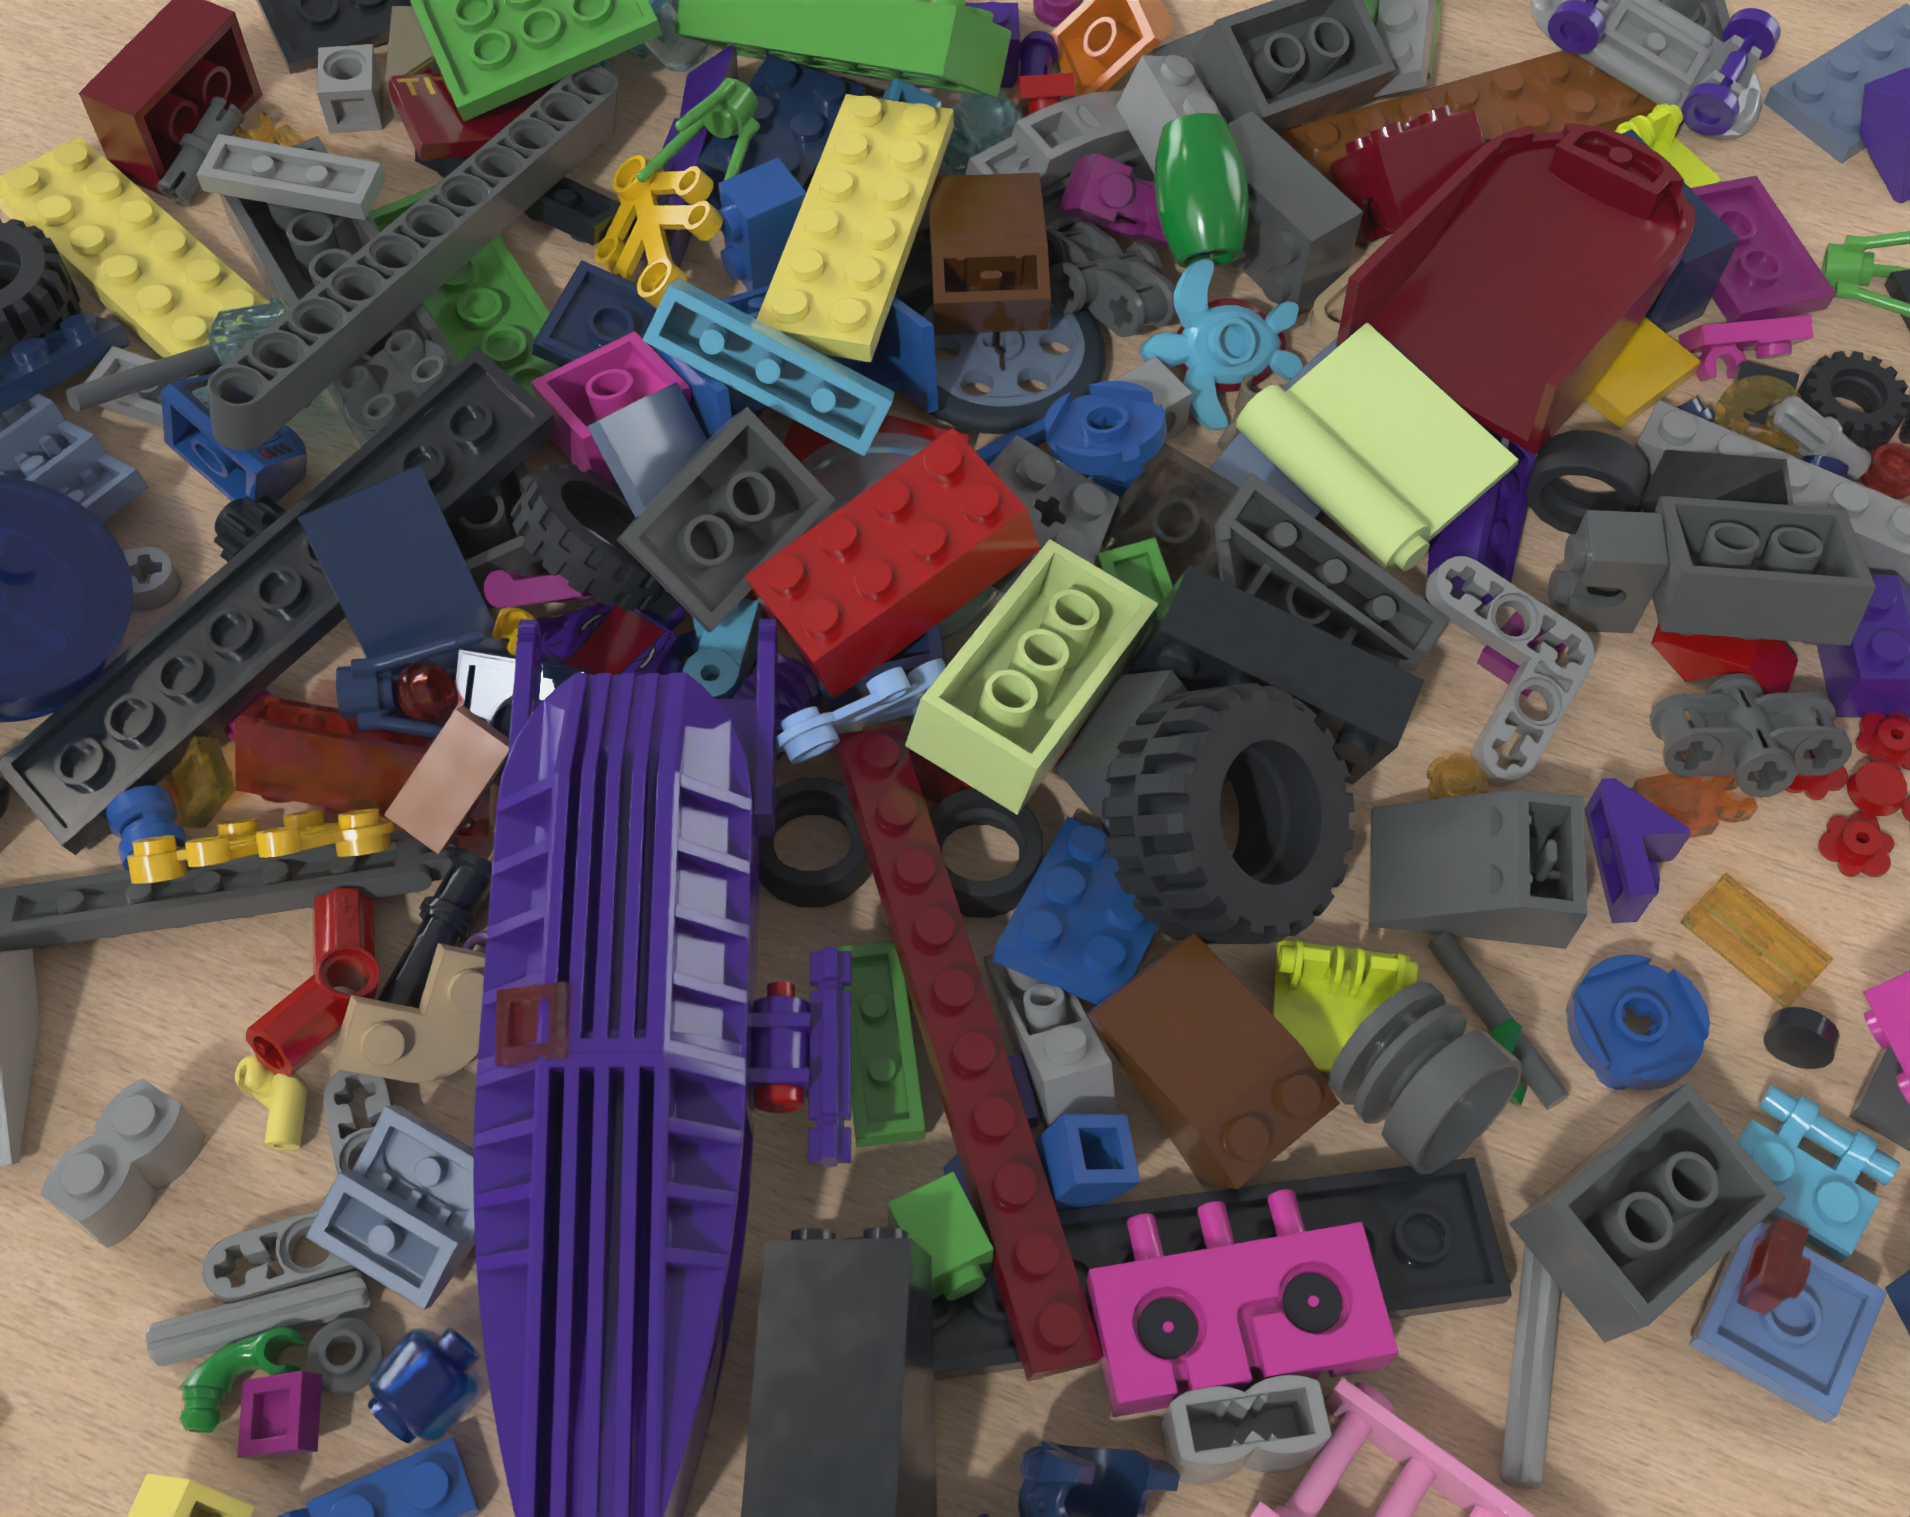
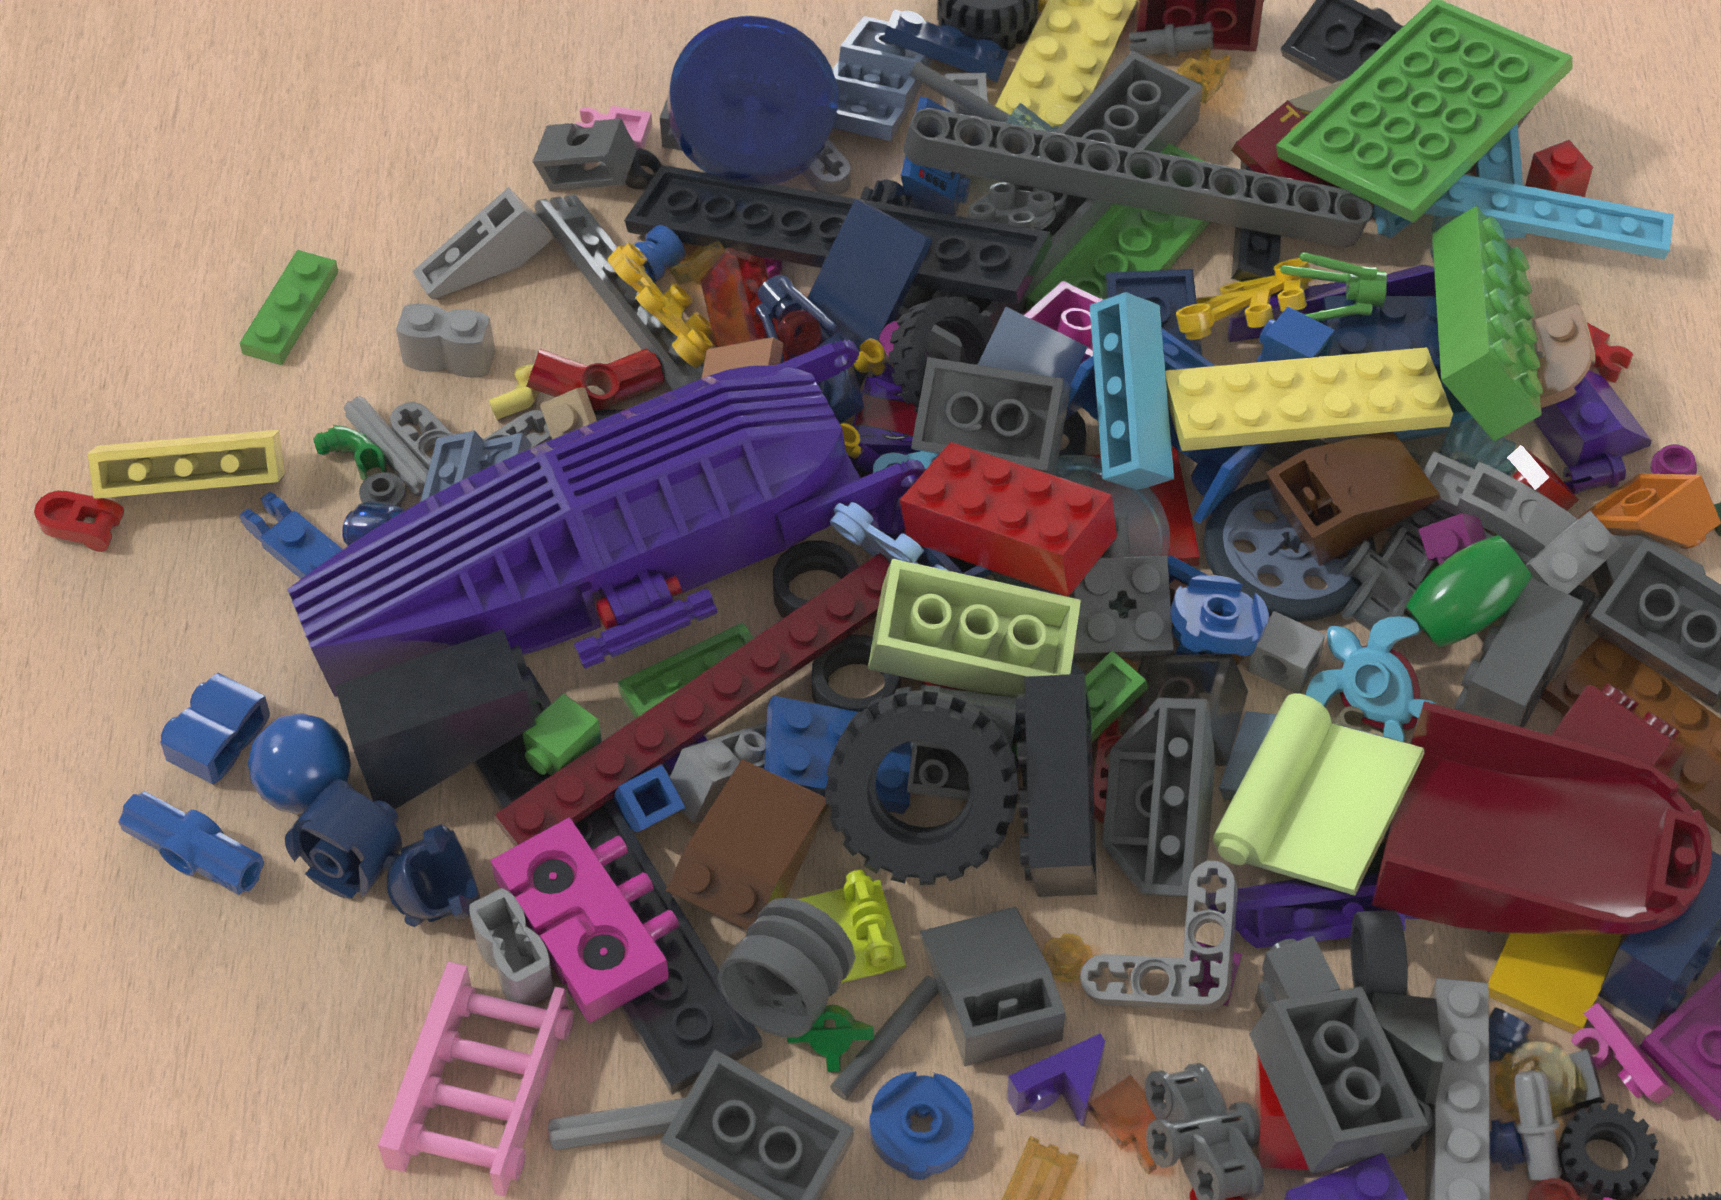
camera: 70 degrees right, 5 degrees down
(280, 1415) = (335, 476): magenta plate -> none
(291, 177) = (1148, 86): light grey plate -> none
(350, 88) = (1277, 83): light grey brick -> none
(518, 1023) = (558, 436): clear red tile -> none

